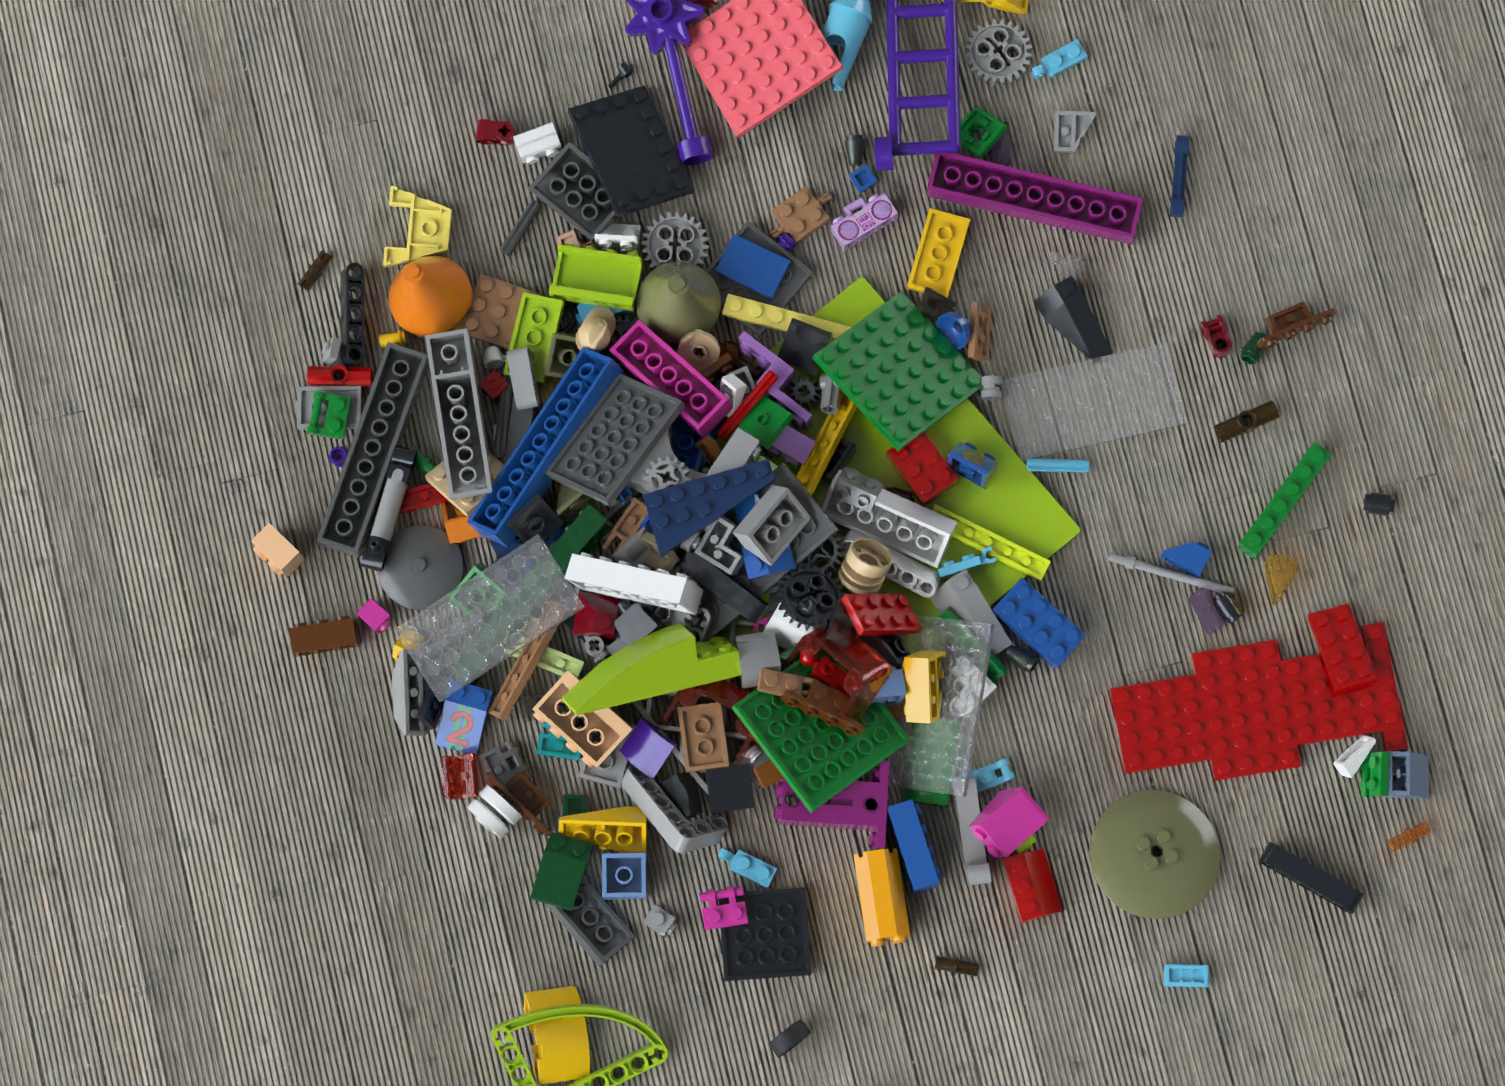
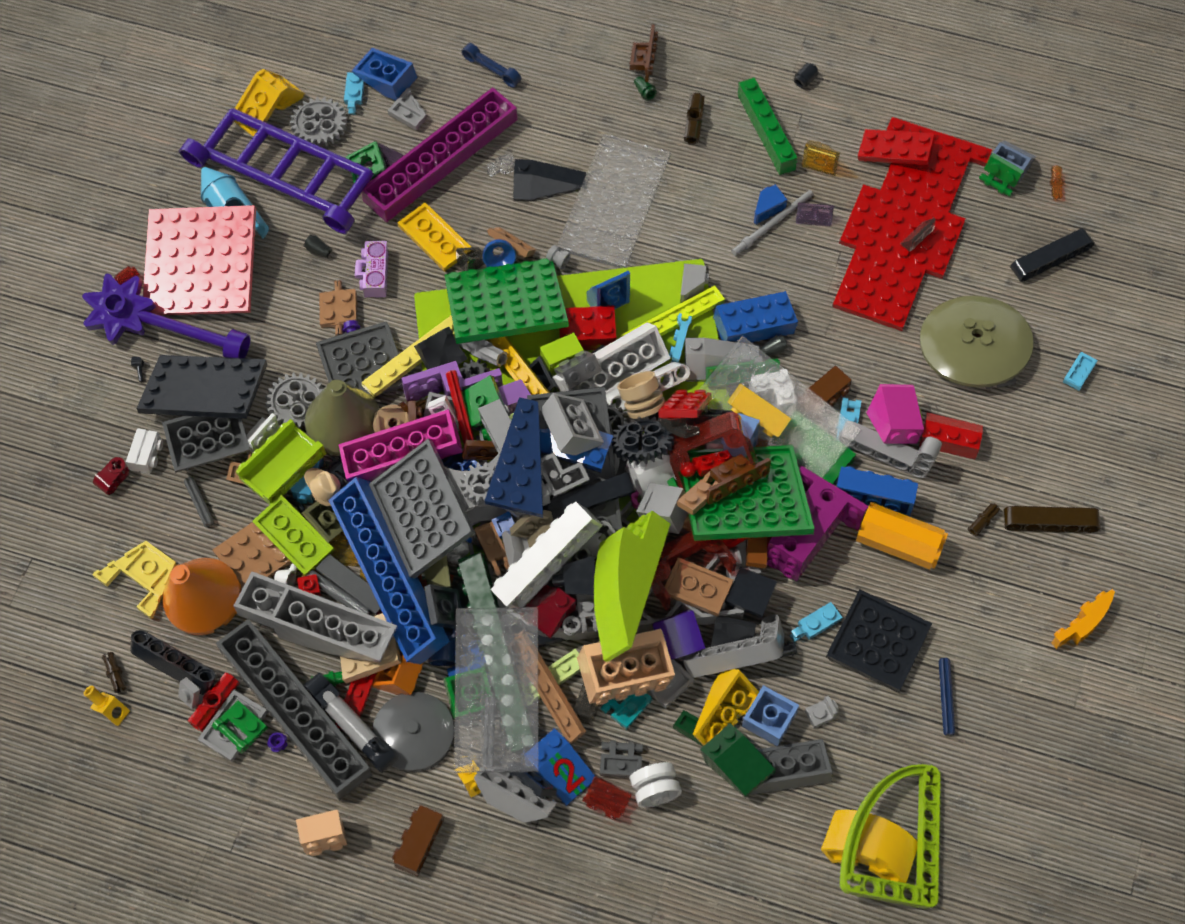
camera: 65 degrees left, 15 degrees down
(280, 285) = (105, 703): none -> yellow bracket
(374, 616) = (429, 789): dark pink brick -> none
(397, 338) = (212, 648): yellow pin -> none
(523, 378) = (320, 558): light grey beam -> none
(525, 795) = (658, 752): reddish brown bracket -> none
(703, 855) = (789, 649): none -> black pin
(723, 915) = (848, 657): dark pink plate -> none
(747, 1027) = (946, 697): none -> dark blue axle
(752, 266) = (353, 356): blue tile -> none
(789, 1038) = (976, 665): black tyre -> none
(863, 179) = (343, 253): blue plate -> none
(870, 462) = (559, 351): none -> lime brick
(996, 1031) = (1052, 519): none -> dark brown beam
(1003, 738) = (832, 386): none -> reddish brown brick
(1041, 537) = (693, 281): none -> light grey slope
(1057, 465) = (645, 246): medium azure axle -> none
(1097, 78) = (385, 73): none -> blue slope
(1214, 333) = (621, 103): dark red piece -> none
(1227, 607) = (821, 197): black brick -> none
(1243, 729) = (918, 234): none -> clear smoke slope
(1353, 757) = (979, 183): white slope -> none

